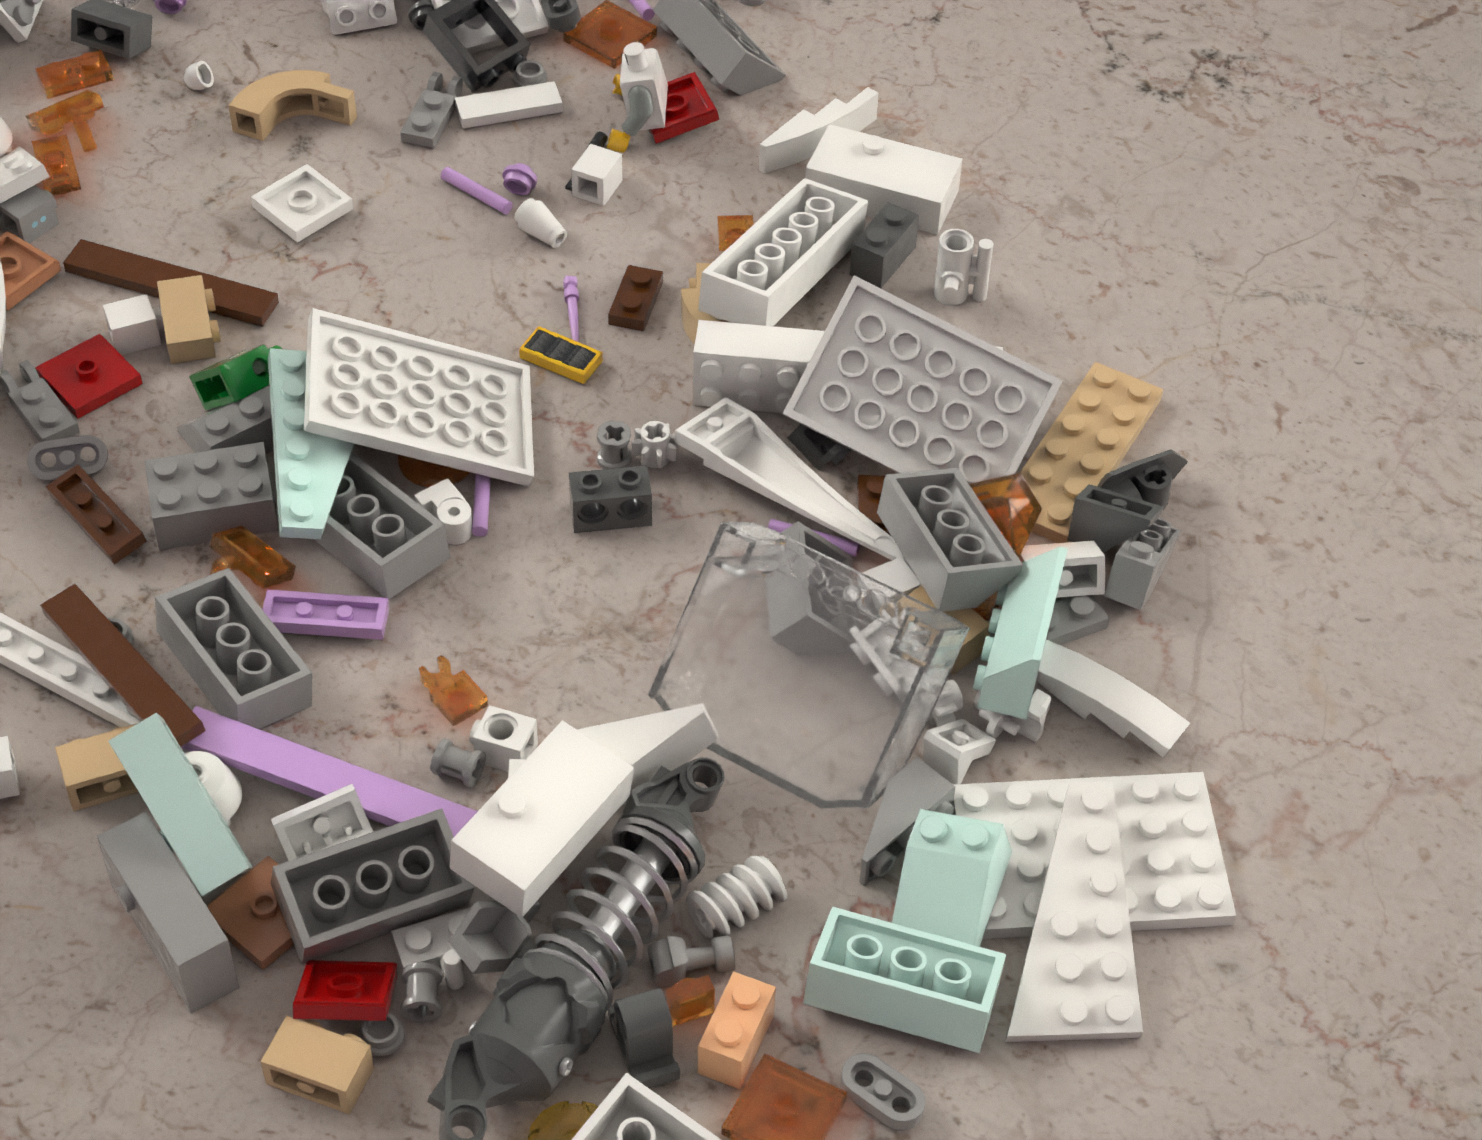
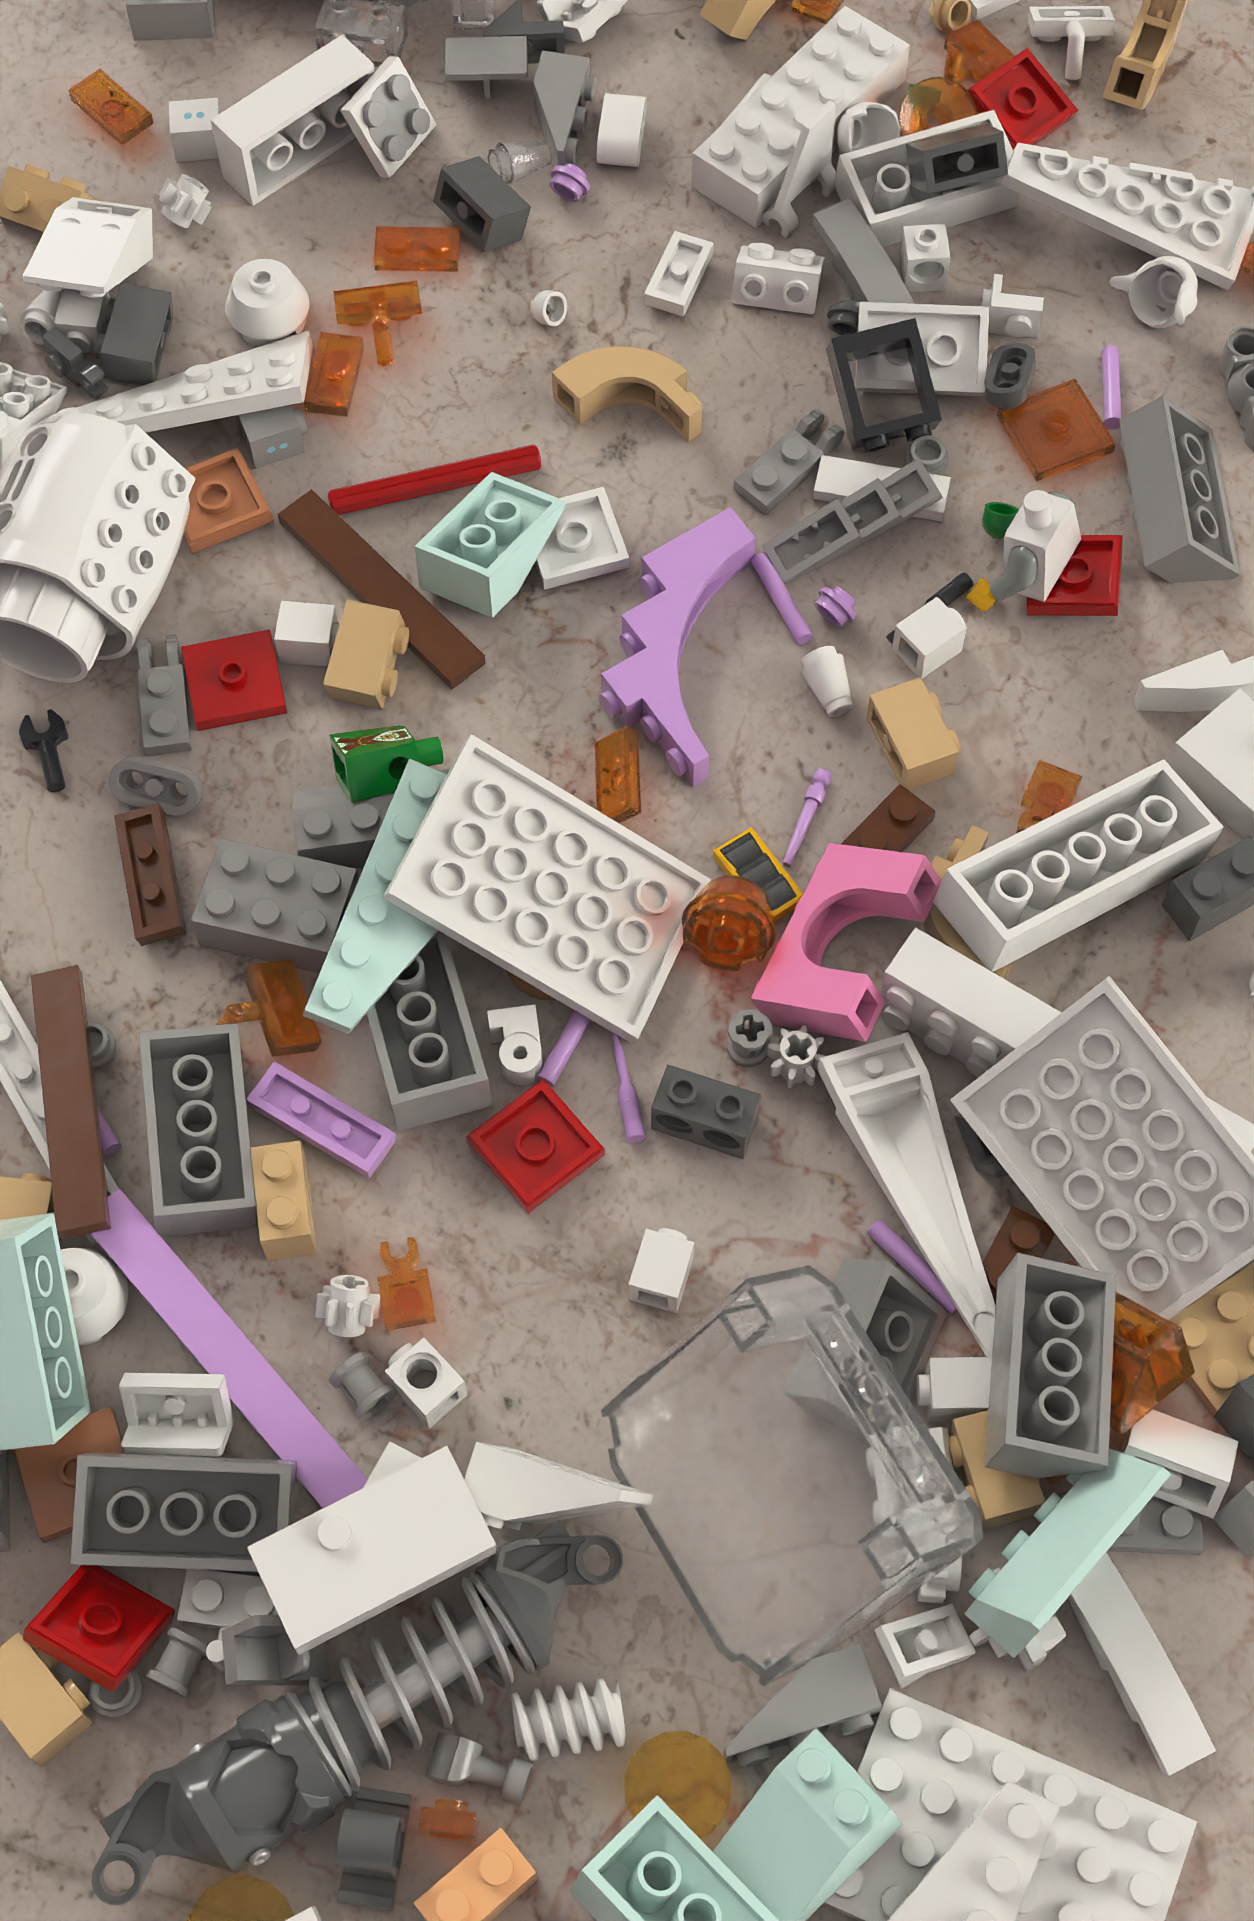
camera: 30 degrees right, 15 degrees up
(173, 204) = (433, 479): none -> red axle
(241, 224) = (487, 544): none -> light aqua slope
(284, 27) = (678, 273): none -> white plate
(337, 679) = (283, 1200): none -> tan brick
(408, 261) = (678, 585): none -> lavender arch
(417, 716) = (347, 1306): none -> white gear
(420, 320) = (618, 775): none -> clear orange plate
(497, 569) = (535, 1145): none -> red plate
(501, 126) = (852, 522): none -> light grey slope
(547, 518) = (628, 1098): none -> lavender piece
(560, 380) = (729, 923): none -> clear orange cone
(604, 94) = (997, 518): none -> green hinge
(619, 232) = (913, 733): none -> tan brick
(627, 336) = (843, 889): none -> bright pink arch
(637, 605) = (661, 1269): none -> white brick
(840, 890) = (685, 1775): none -> clear yellow tile

